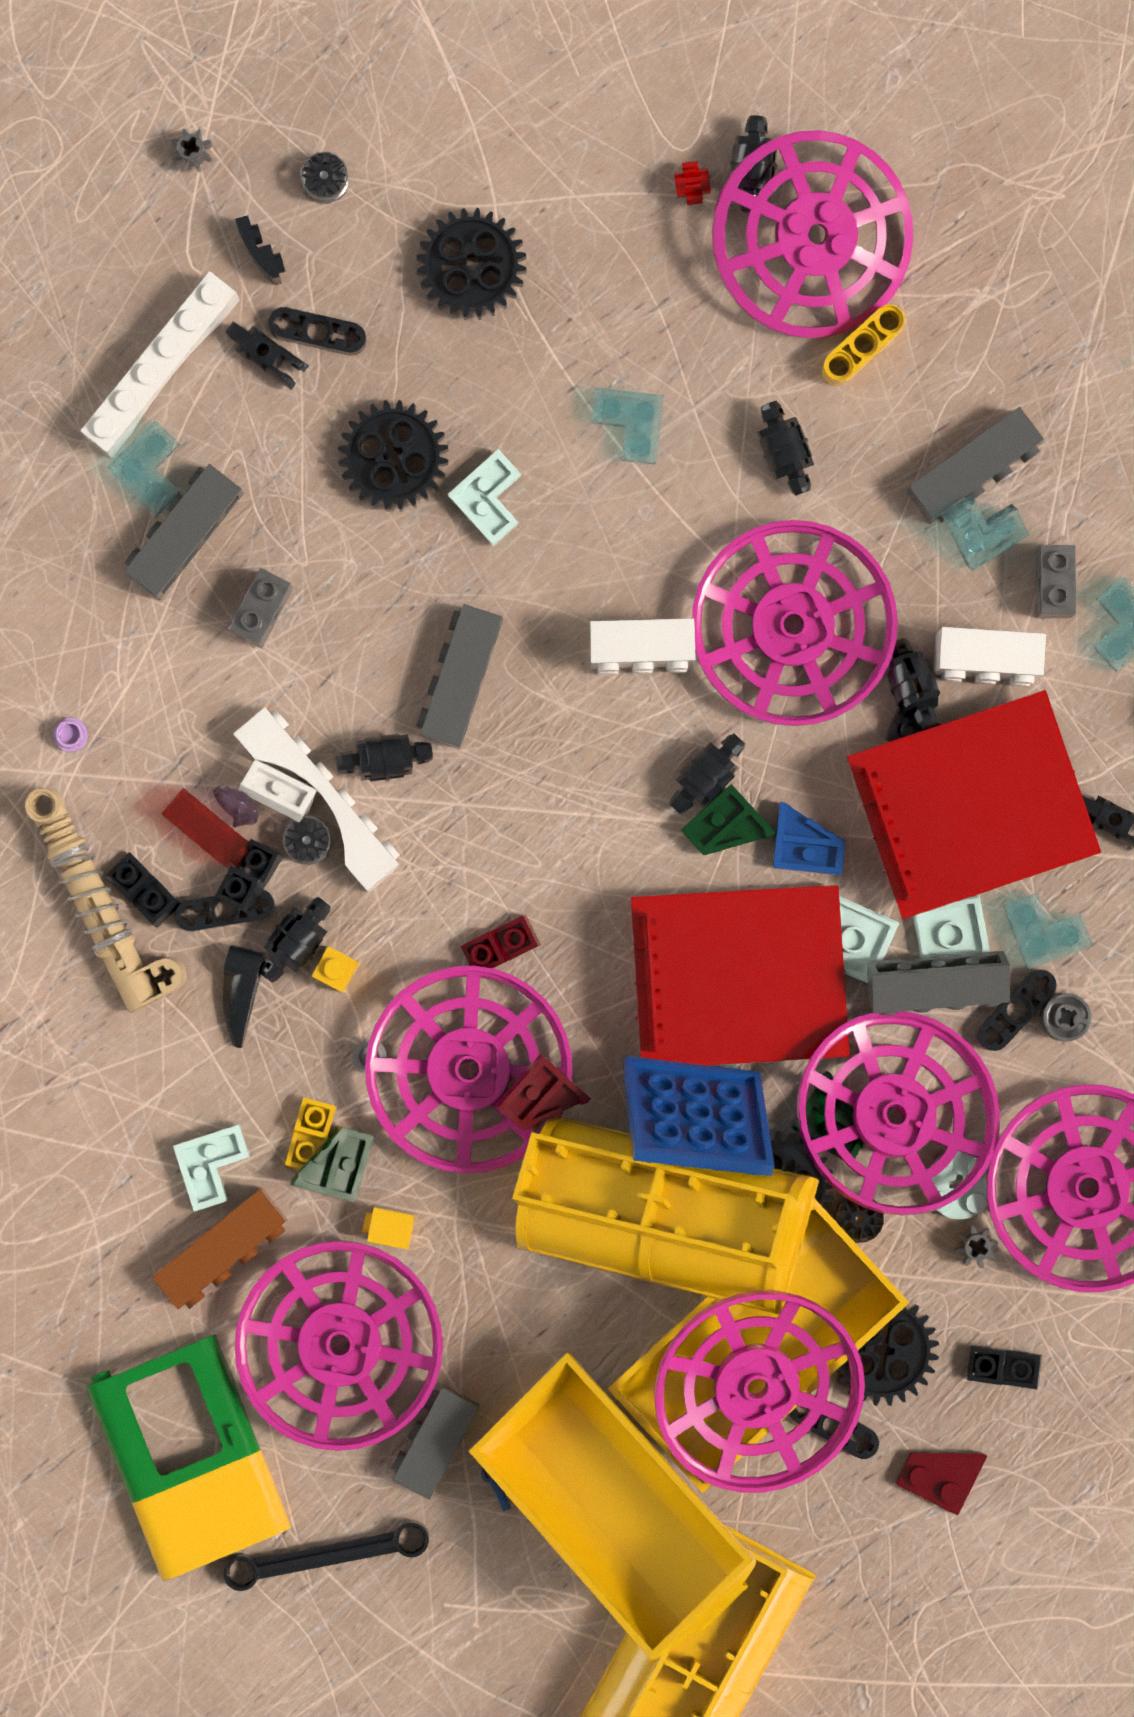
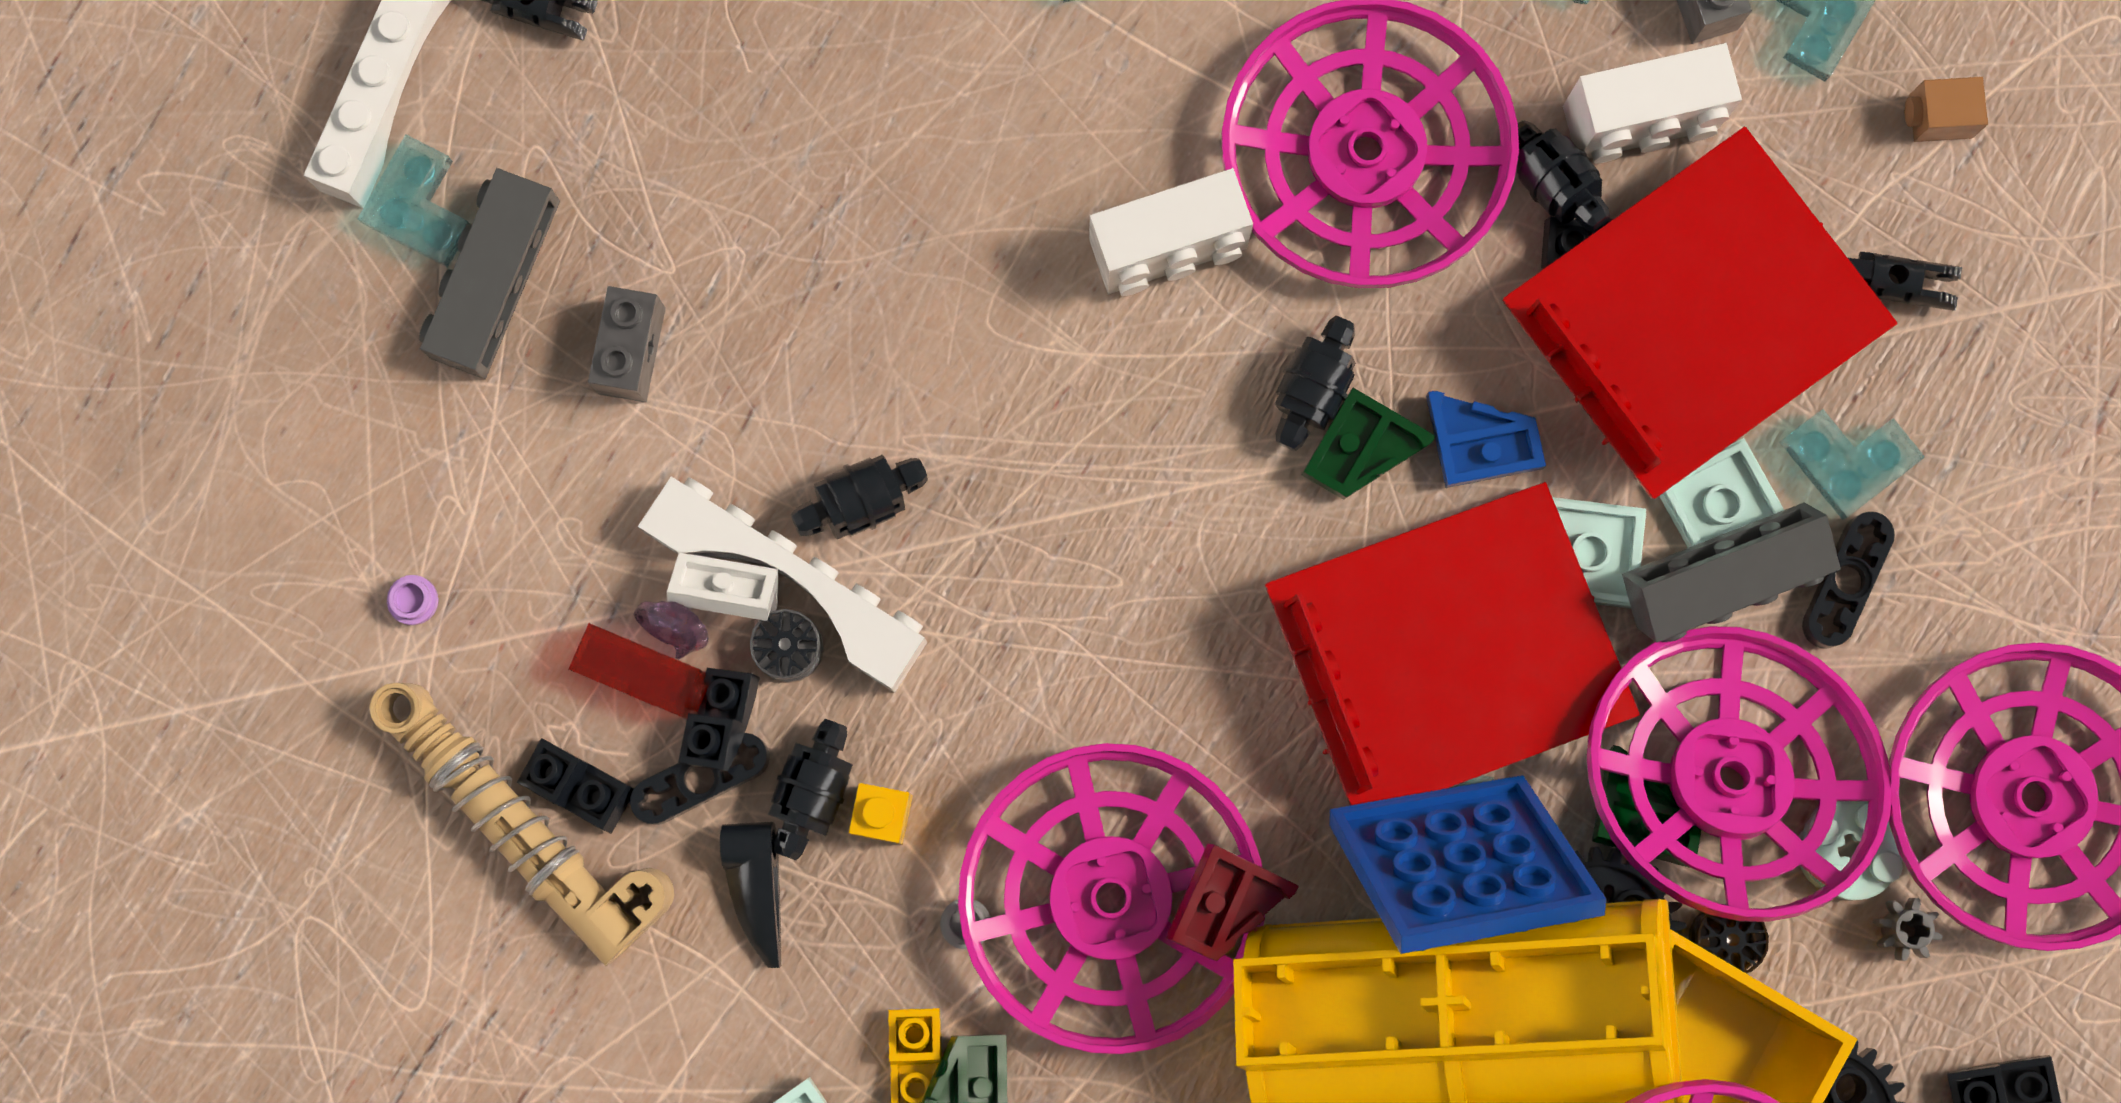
camera: 10 degrees left, 5 degrees down
(421, 444) = (783, 60): black gear -> none
(461, 676) = (932, 354): dark grey brick -> none
(479, 493) = (883, 103): light aqua plate -> none
(501, 944) = (1103, 707): dark red slope -> none
(1065, 1017) = (1921, 568): flat silver wheel -> none

